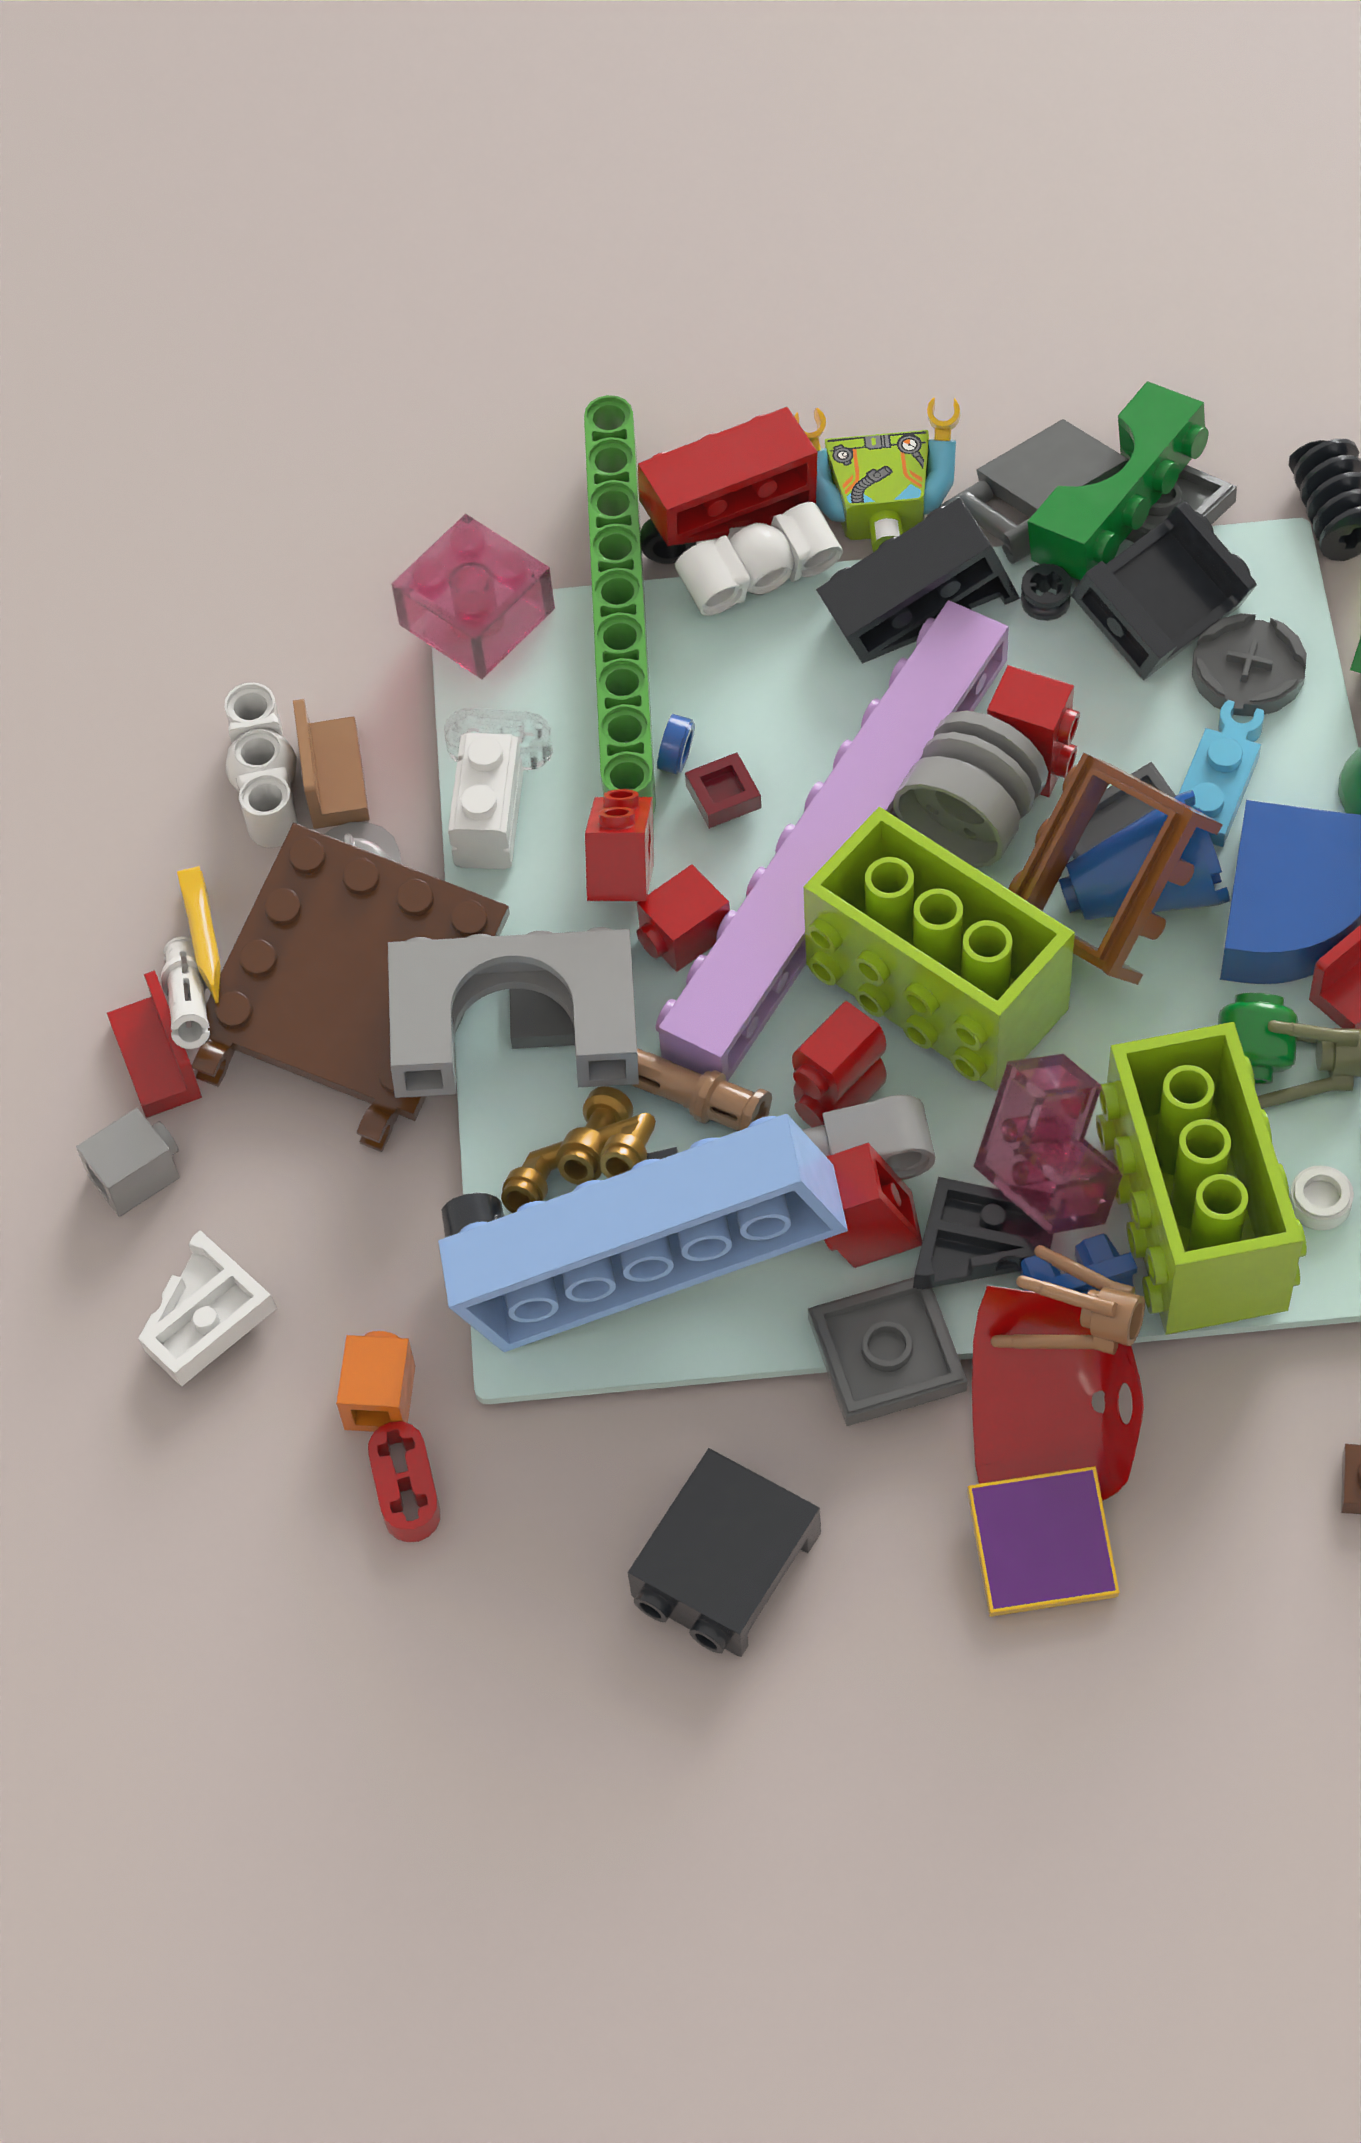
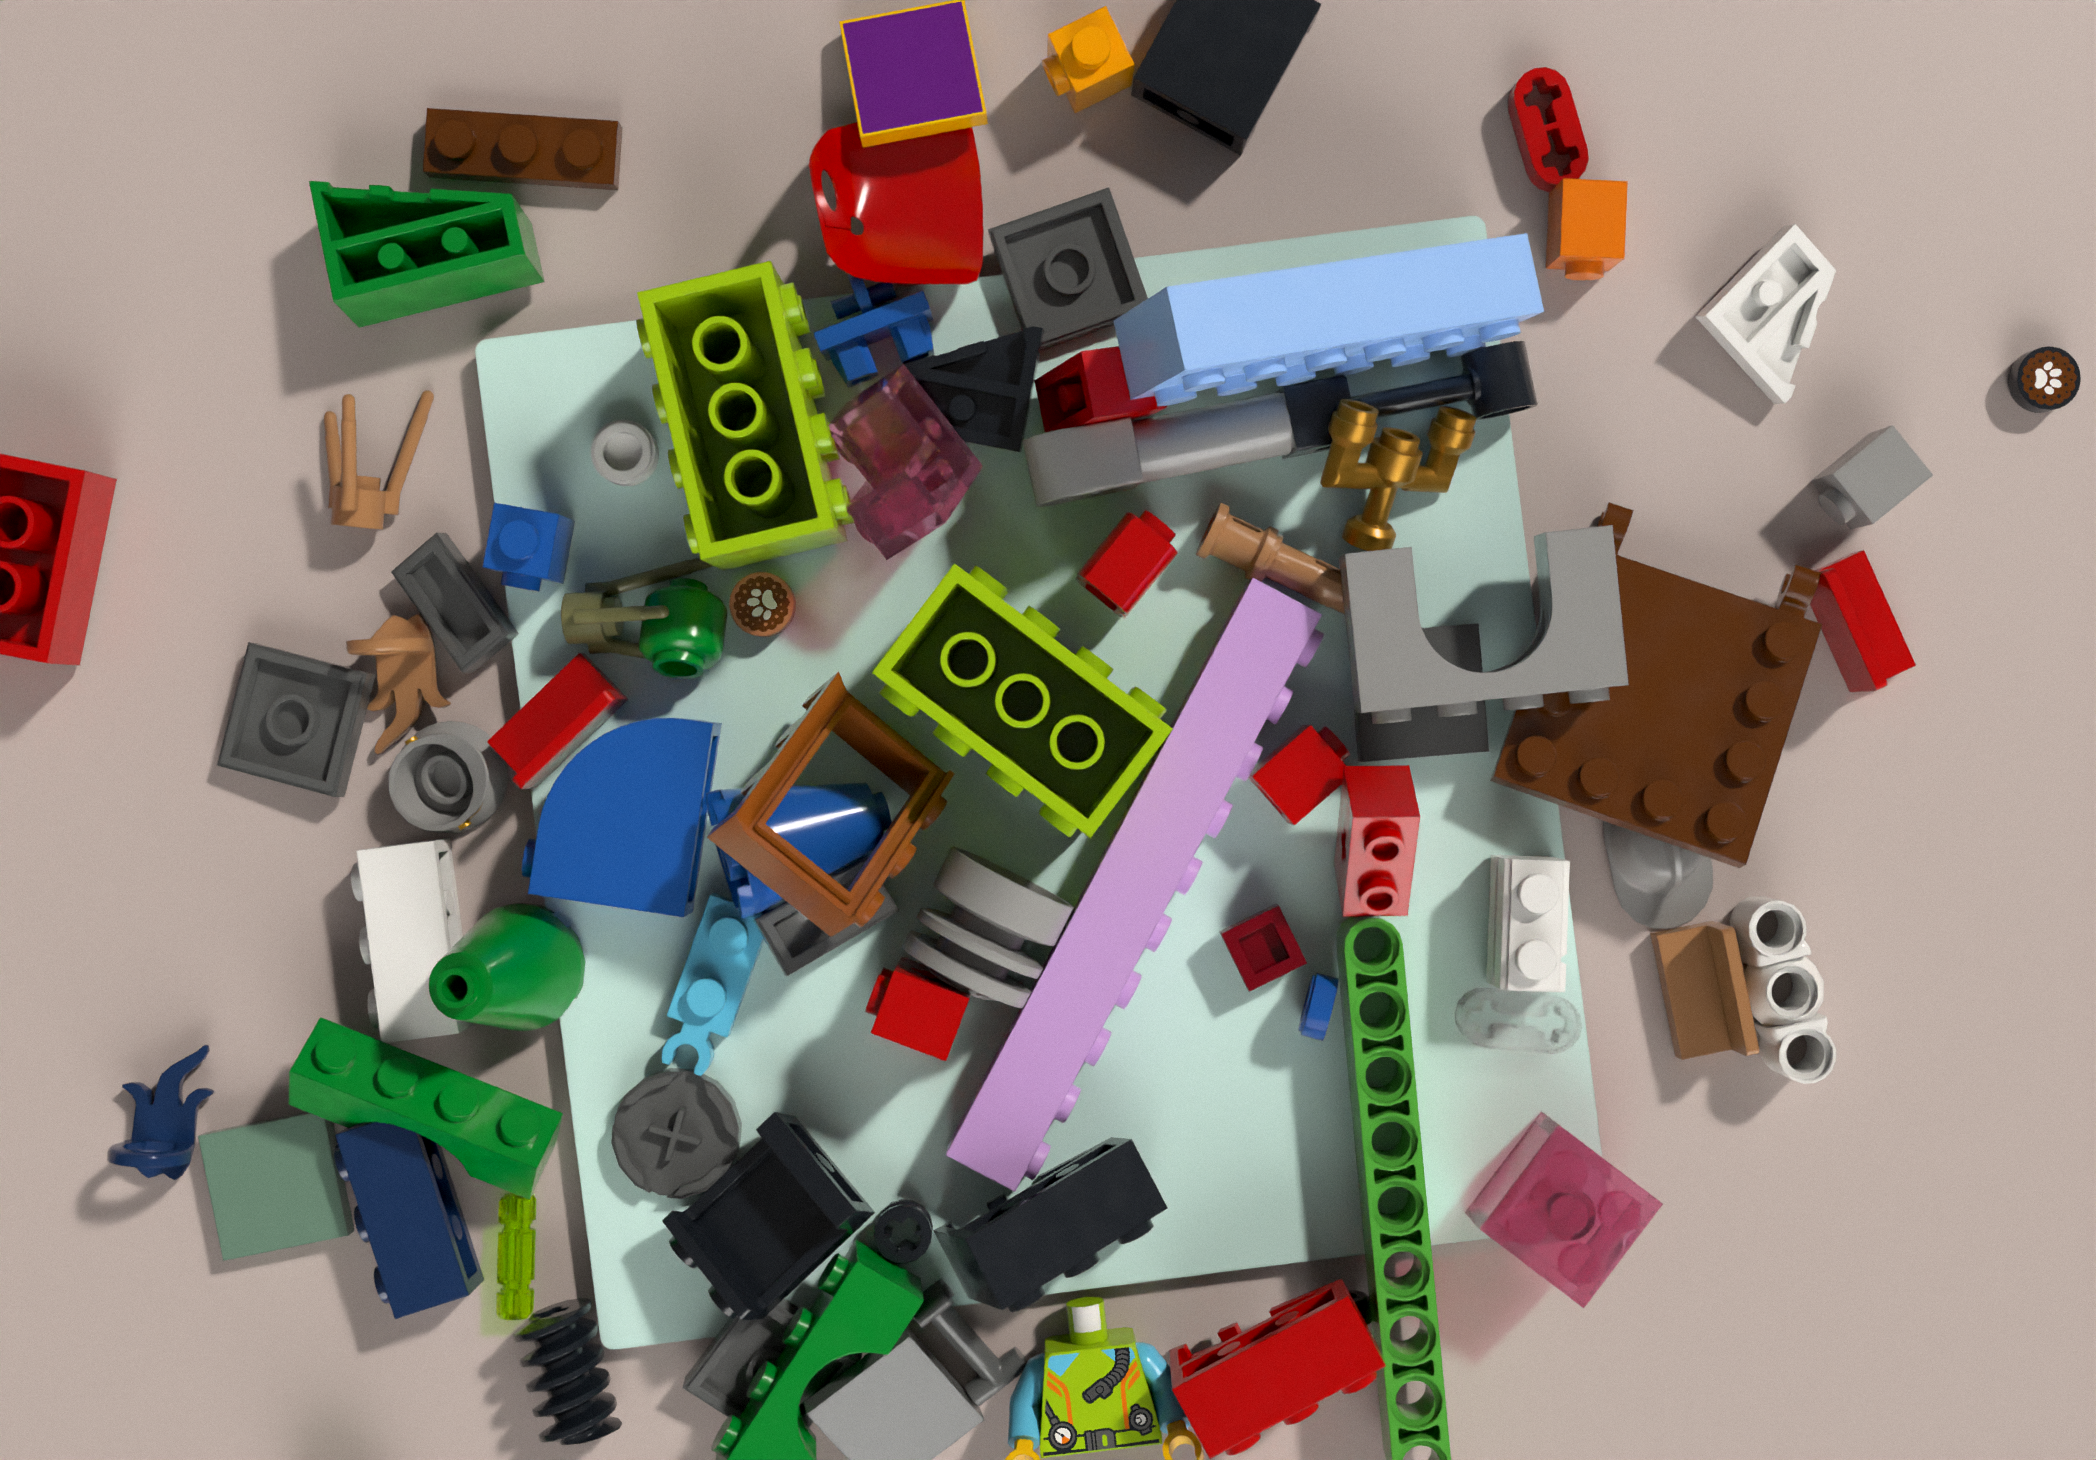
camera: 175 degrees right, 30 degrees up
(181, 1010) = (1838, 689): white pin -> none
(201, 927) = (1835, 807): yellow piece -> none
(758, 558) = (1234, 1264): white piece -> none
(864, 1539) = (1088, 60): none -> light orange brick
(1110, 1314) = (843, 247): medium nougat plant -> none

